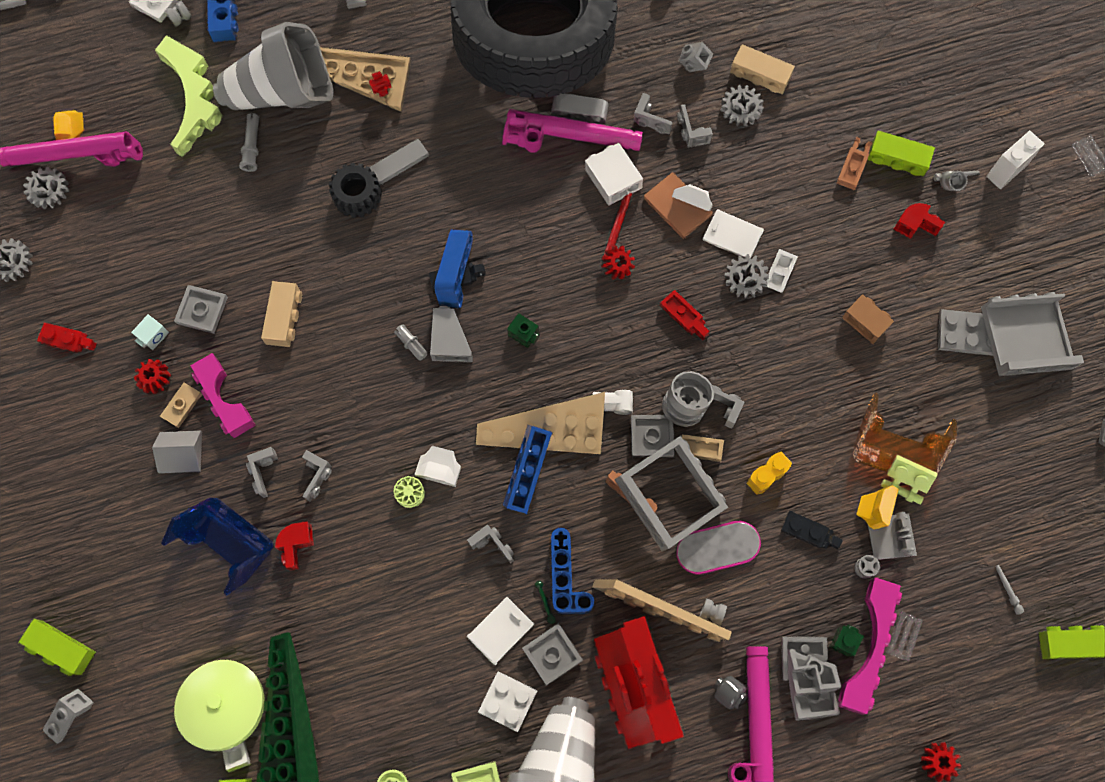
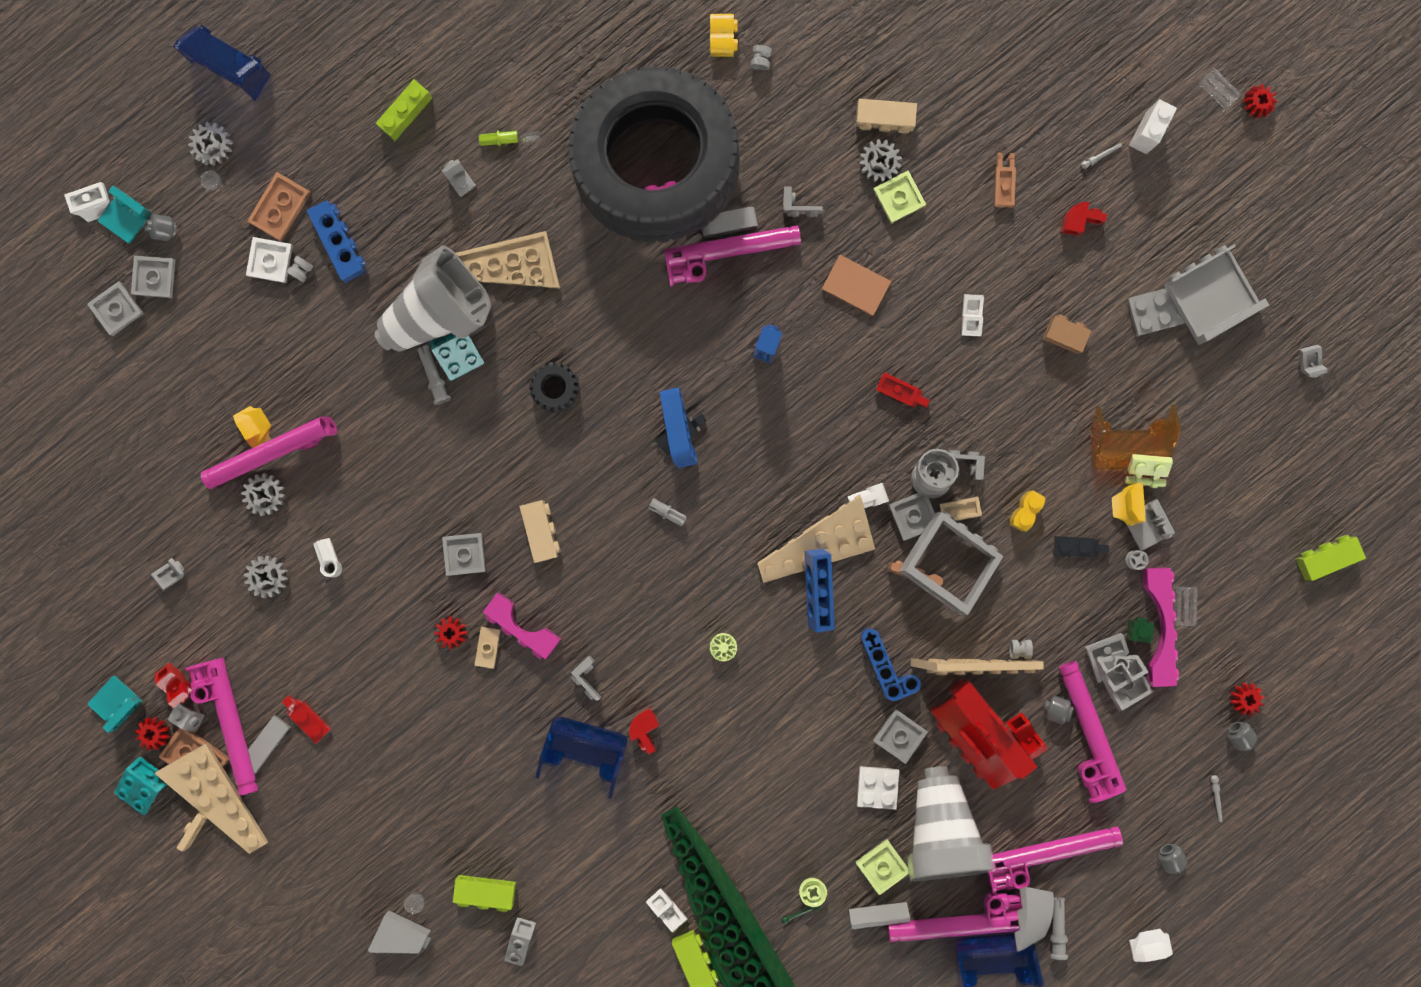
camera: 25 degrees left, 15 degrees up
(65, 338) = (353, 628): red hinge -> none
(73, 265) = (326, 556): none -> white piece
(149, 333) = (429, 594): light aqua brick -> none
(178, 451) = (505, 688): light grey slope -> none
(198, 91) = (358, 342): yellowish green arch -> none
(219, 705) = (642, 885): yellowish green dish -> none
(281, 132) = (456, 355): none -> teal bracket
(324, 471) = (629, 654): light grey bracket -> none
(380, 84) = (532, 273): red gear -> none
(399, 161) = (580, 340): light grey tile -> none
(438, 466) = (739, 614): white slope -> none
(447, 337) = (698, 494): light grey slope -> none
(481, 538) = (801, 663): light grey bracket -> none
(500, 630) = (848, 732): white container -> none
(523, 330) = (764, 463): dark green brick -> none
(551, 619) = (886, 706): dark green hinge -> none
(569, 214) = (767, 343): none -> blue brick
(613, 173) = (786, 277): white brick -> none
(618, 222) = (807, 325): red bar -> none
(624, 268) = (820, 359): red gear -> none
(685, 705) = (1026, 736): none -> red brick
(693, 138) = (851, 207): light grey bracket -> none
(694, 196) = (870, 274): white slope -> none
(695, 57) = (815, 126): light grey brick -> none
(718, 547) = (1007, 591): flat silver tile -> none
(733, 234) = (916, 294): white container -> none
(748, 142) = (899, 197): none -> yellowish green plate
(752, 280) = (953, 334): light grey gear -> none
(901, 153) = (1044, 155): lime brick -> none
(957, 178) = (1101, 166): light grey wheel -> none
(1013, 599) = (1267, 539): light grey piece -> none

